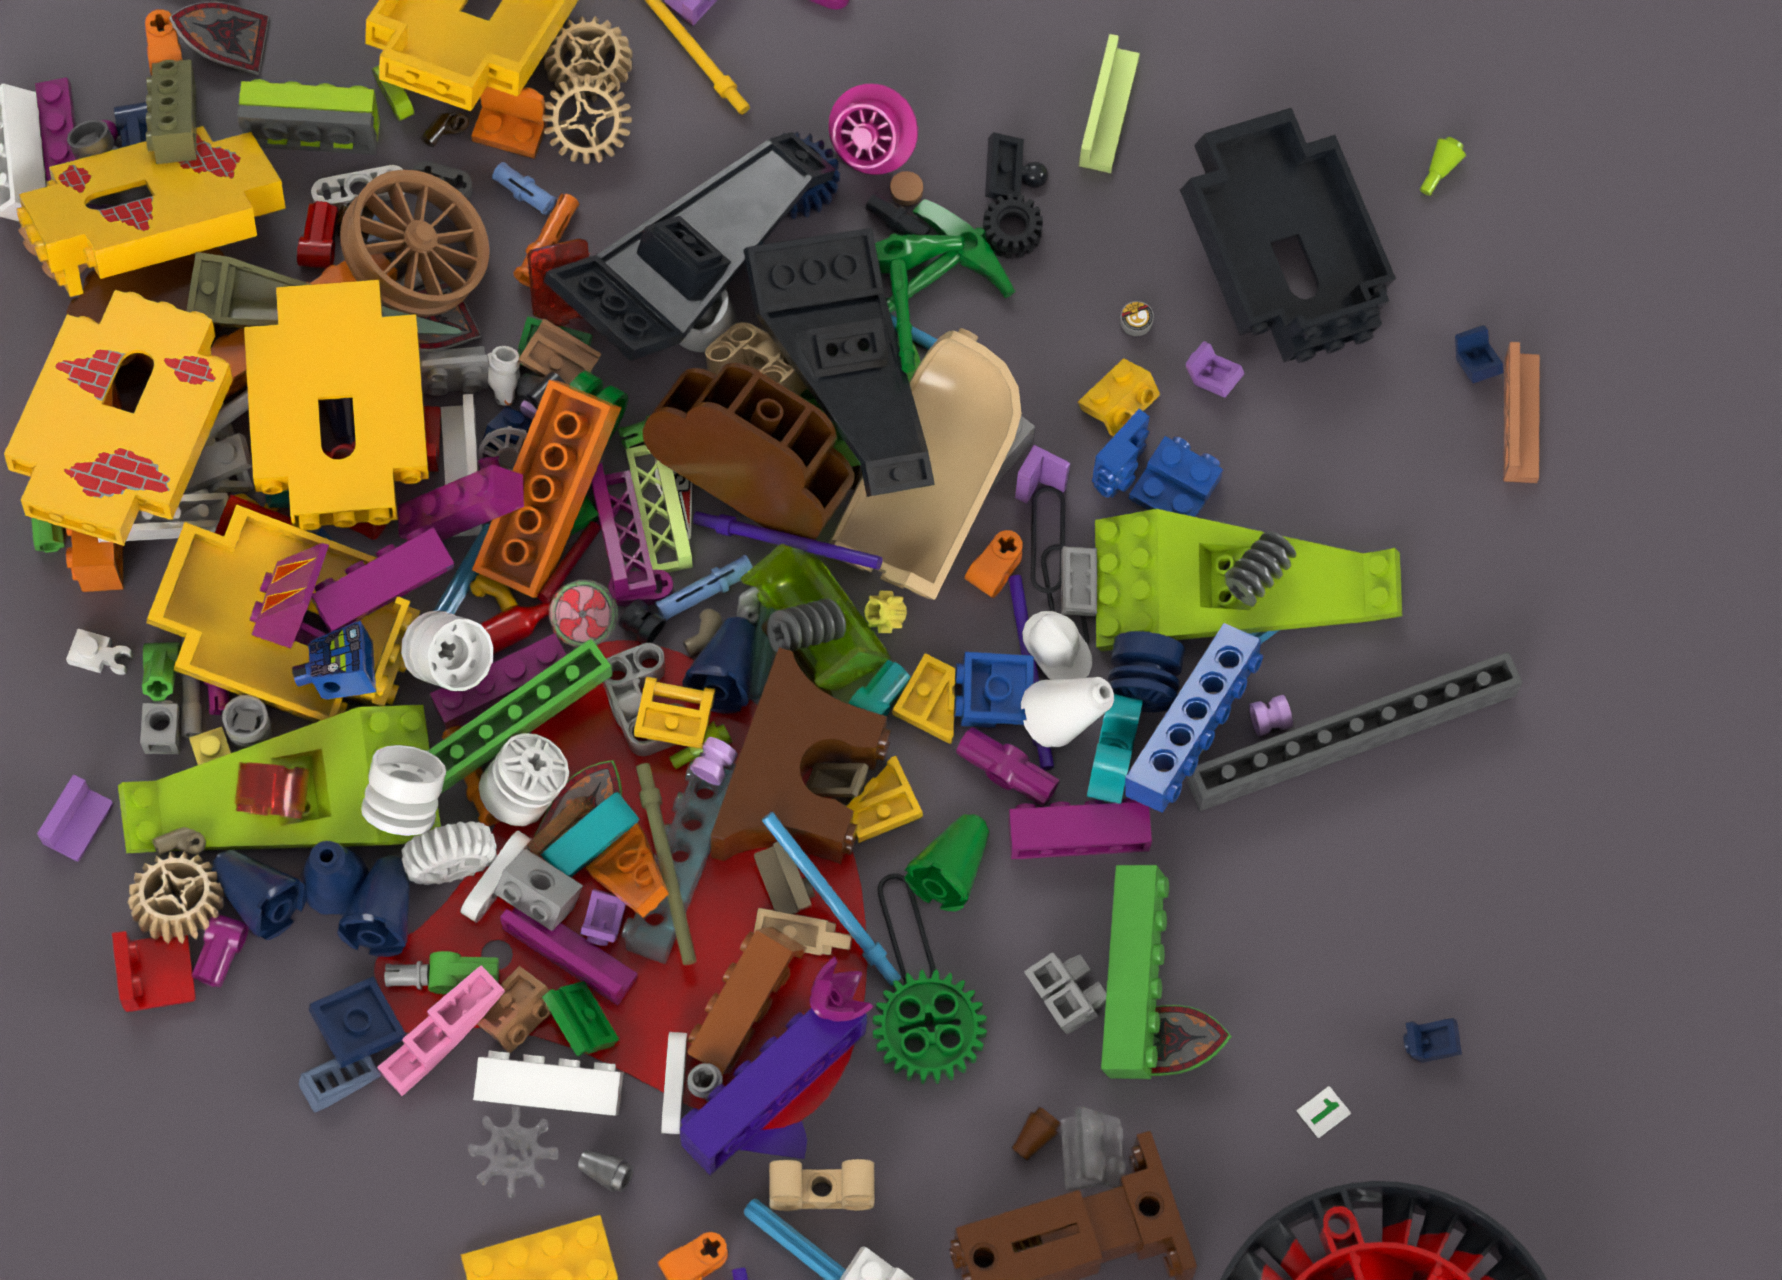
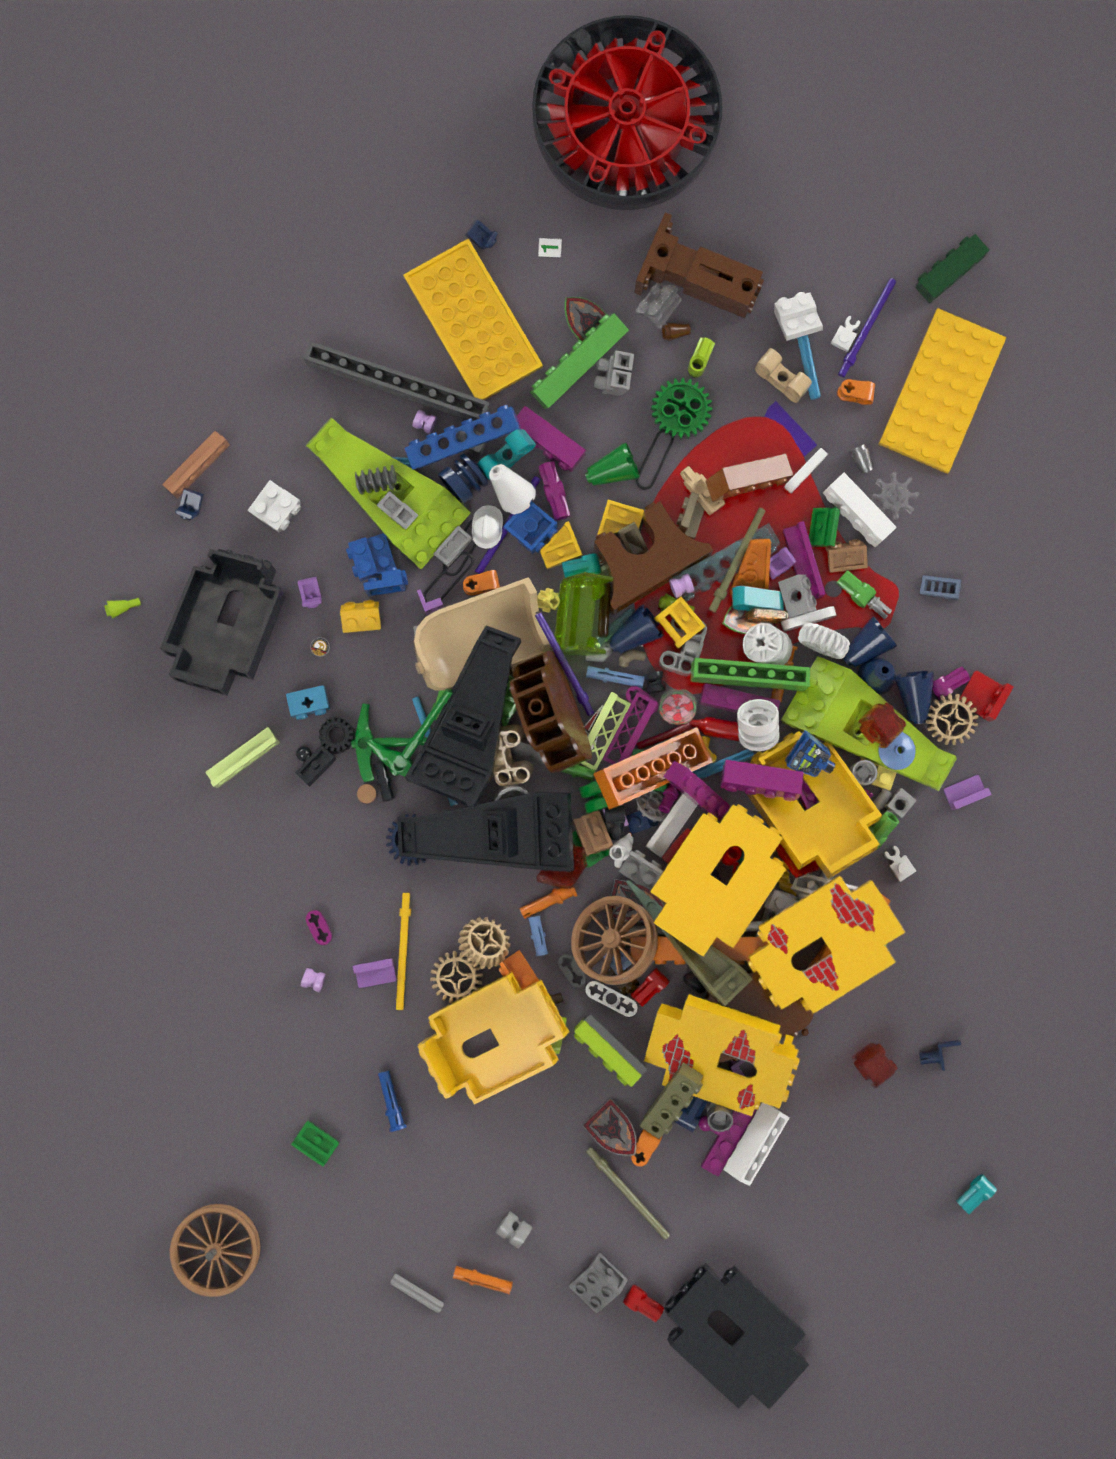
camera: 140 degrees left, 15 degrees up
(181, 839) = (930, 743): dark tan arm -> none
(208, 805) = (895, 760): none -> medium blue dish
(287, 596) = (810, 803): magenta slope -> none
(357, 1022) = (917, 602): dark blue plate -> none
(403, 790) = (829, 672): white wheel -> none
(442, 1031) = (885, 569): bright pink slope -> none
(704, 1080) = (799, 453): light grey cone -> none
(766, 1086) = (767, 433): dark purple brick -> none
(806, 625) = (591, 616): dark grey piece -> none
(833, 994) = (722, 433): magenta piece -> none
(873, 128) = (361, 829): dark pink piece -> none
(873, 952) = (679, 458): dark azure bar -> none
(967, 1126) = (700, 356): none -> lime piece
(1086, 236) = (297, 699): none -> dark azure brick
(1193, 555) = (397, 510): none -> light grey slope
(1334, 910) = (473, 320): none -> yellow plate
(1364, 445) = (275, 506): none -> white plate

